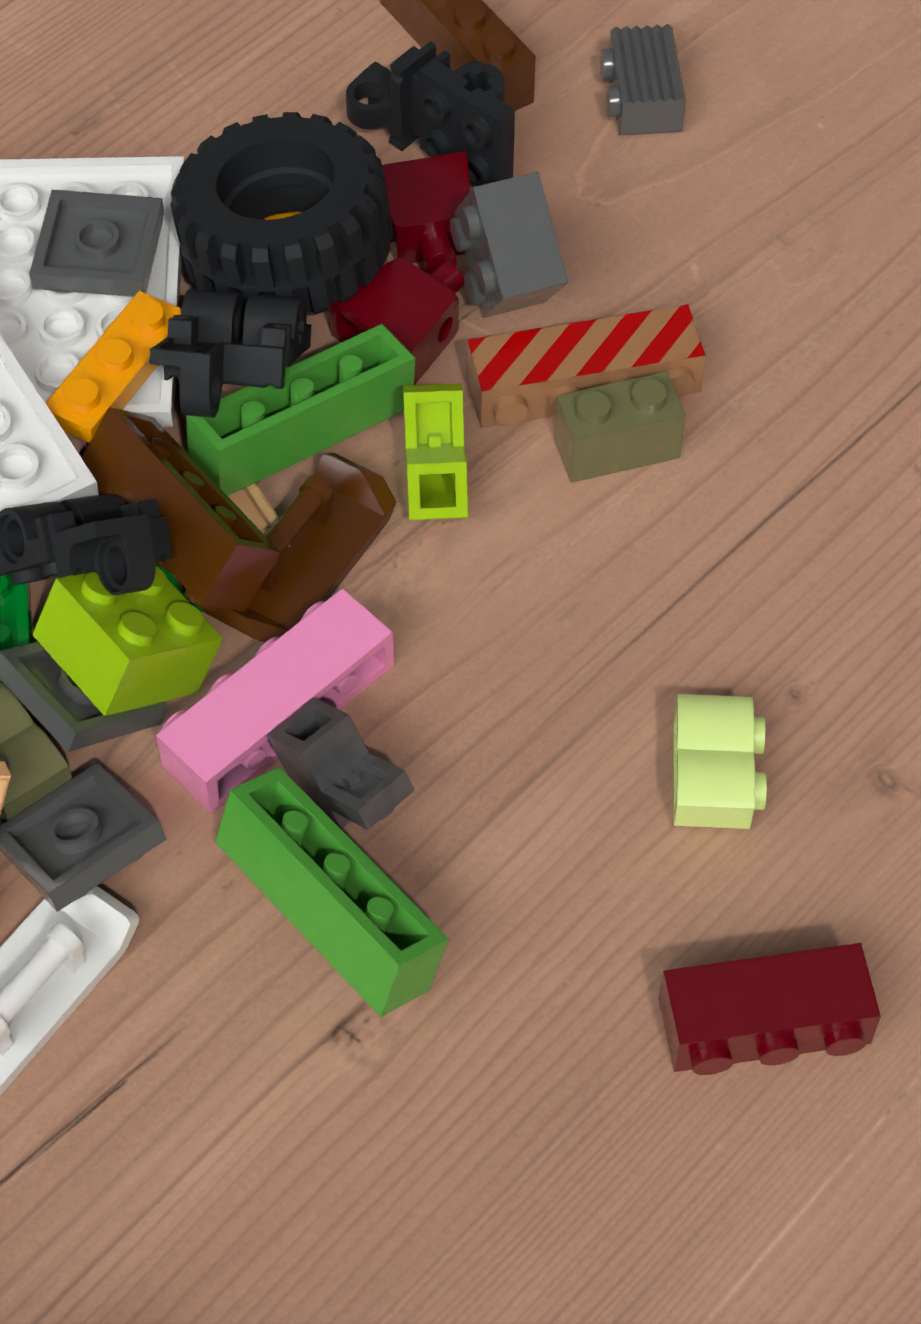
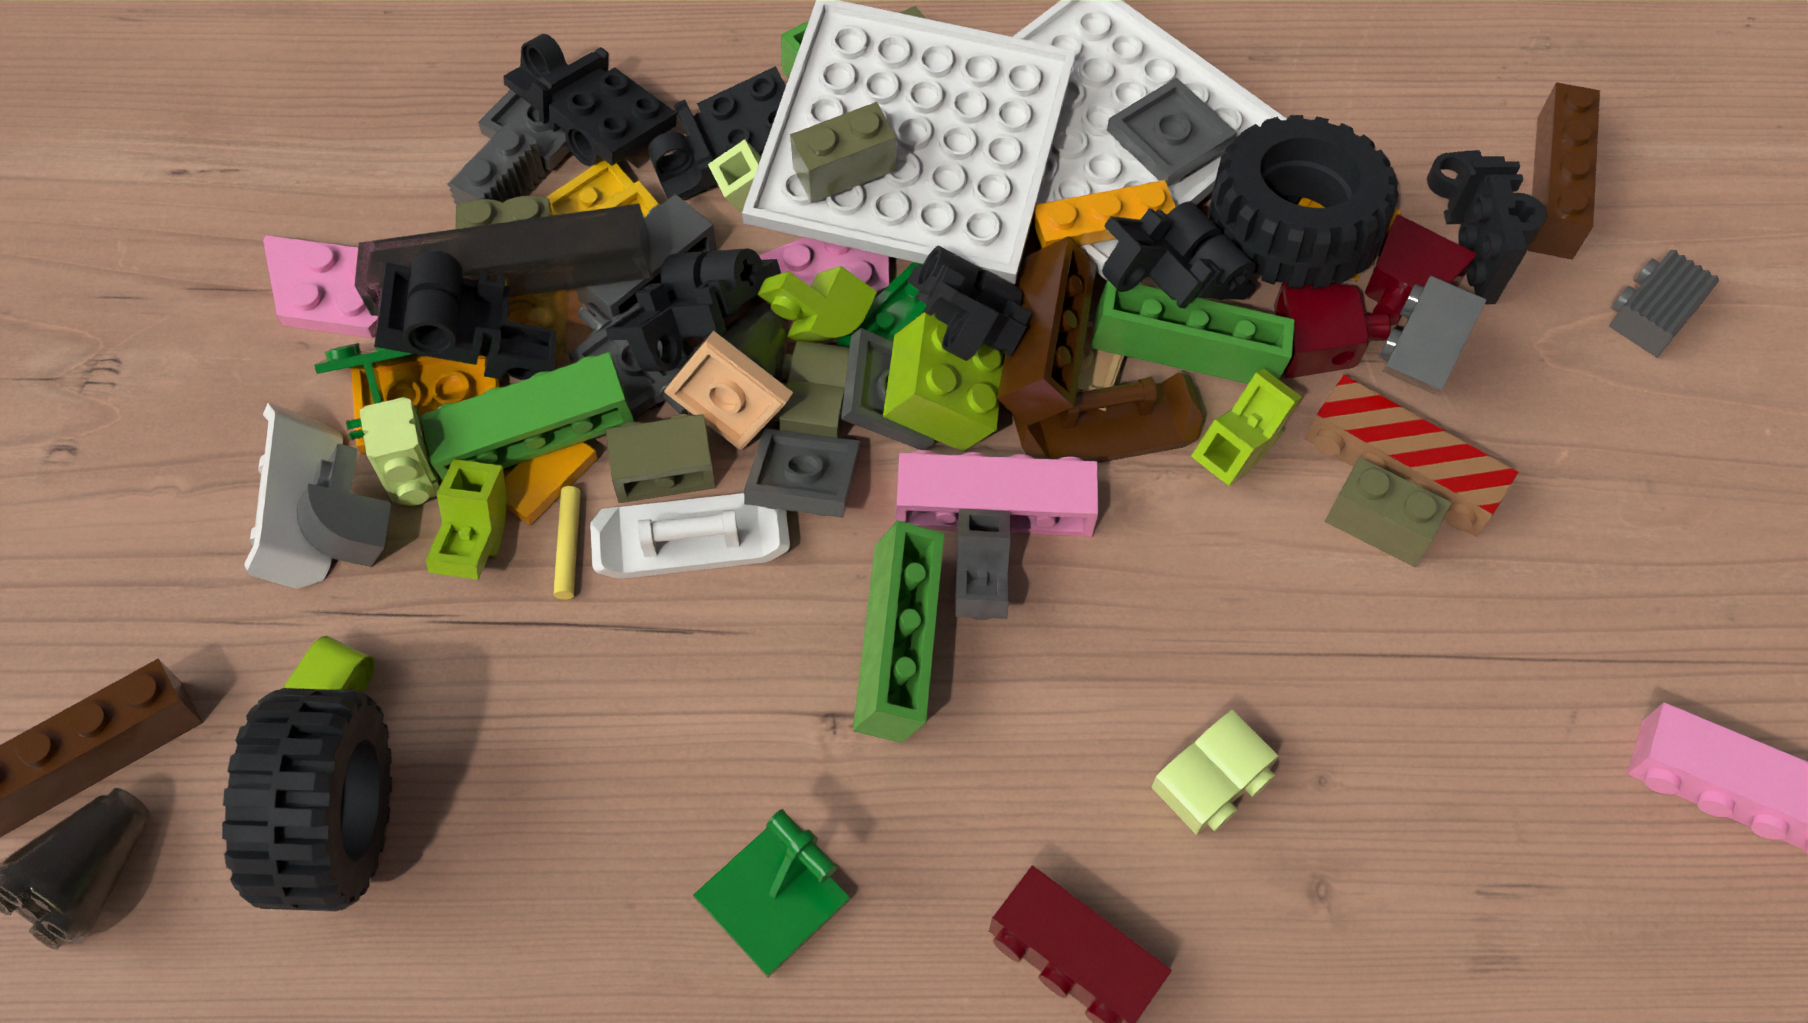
camera: 45 degrees right, 5 degrees up
(468, 1221) = (774, 893): none -> green plate

